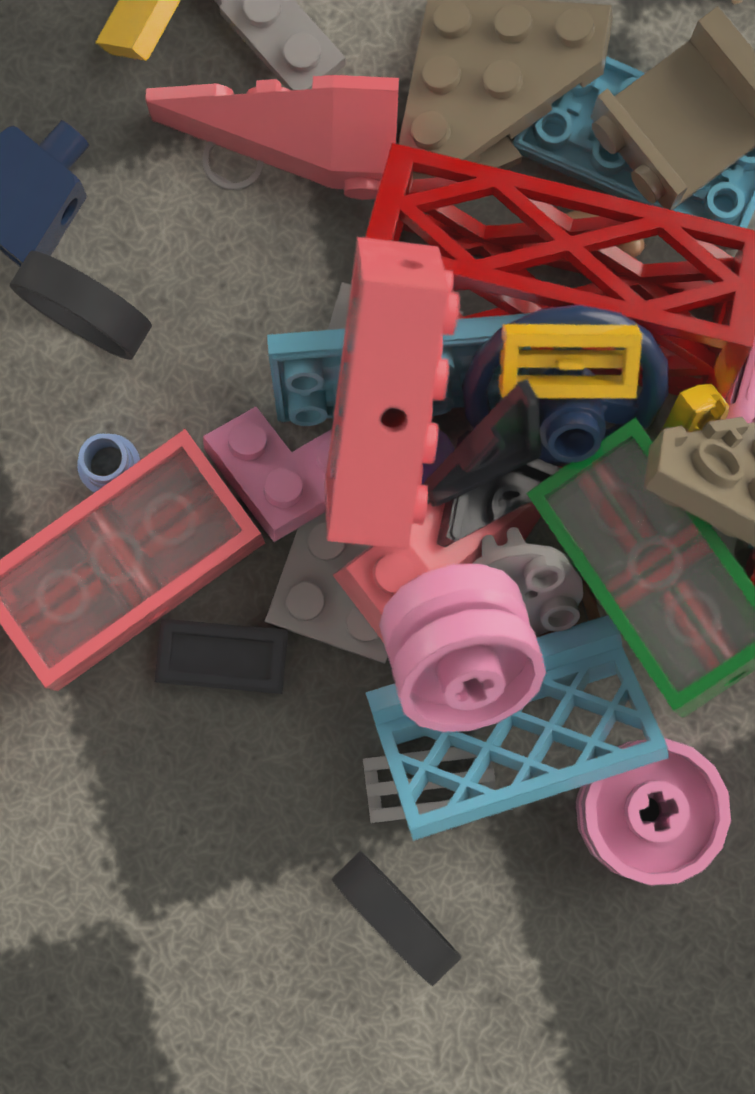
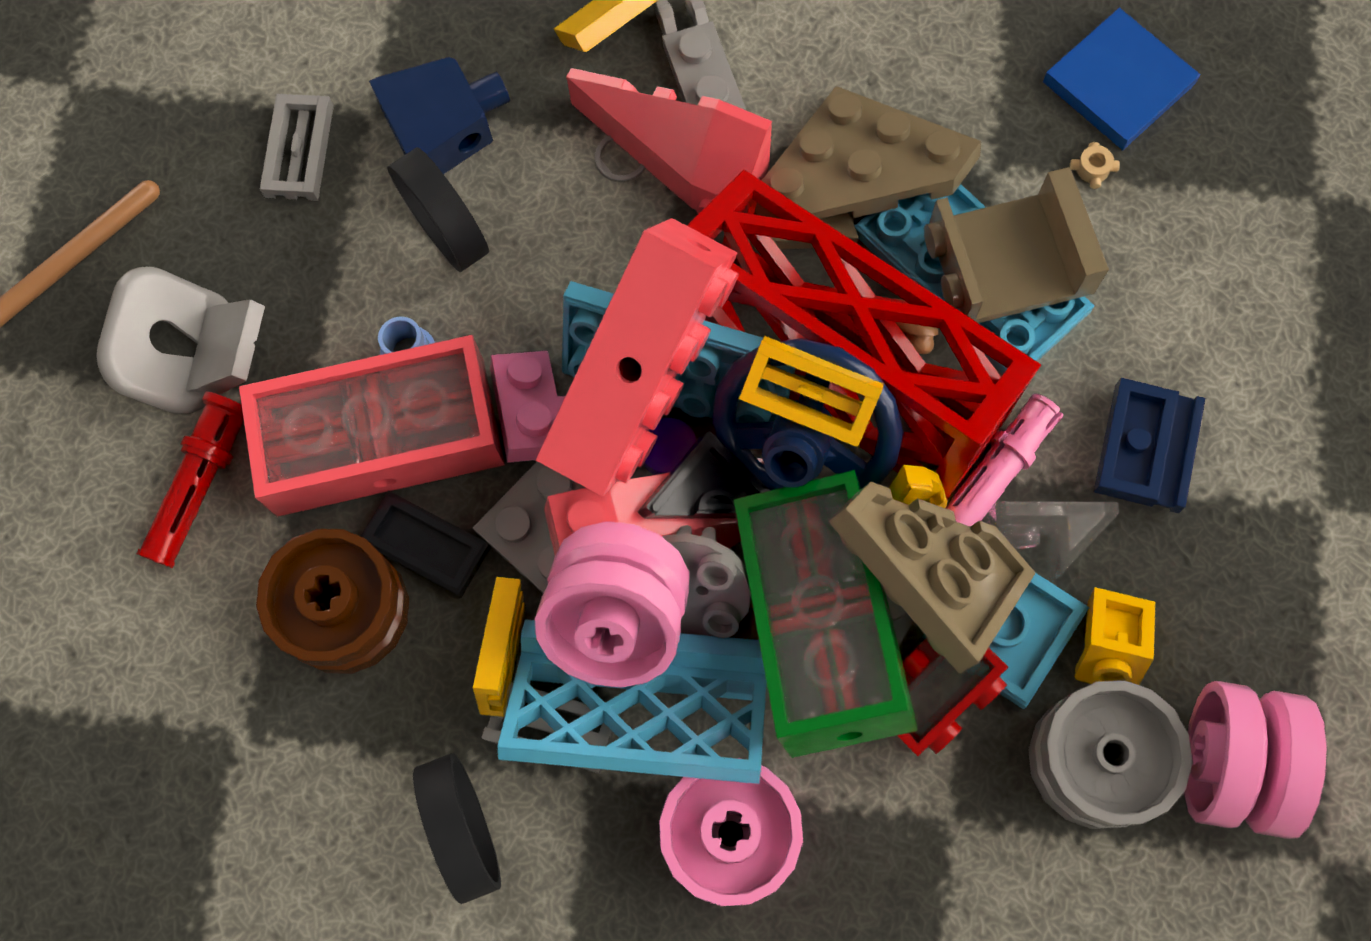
camera: 30 degrees right, 10 degrees down
(128, 748) = (332, 601): none -> reddish brown wheel
(352, 728) = (499, 647): none -> yellow tile
(497, 446) = (718, 444): black tile -> none

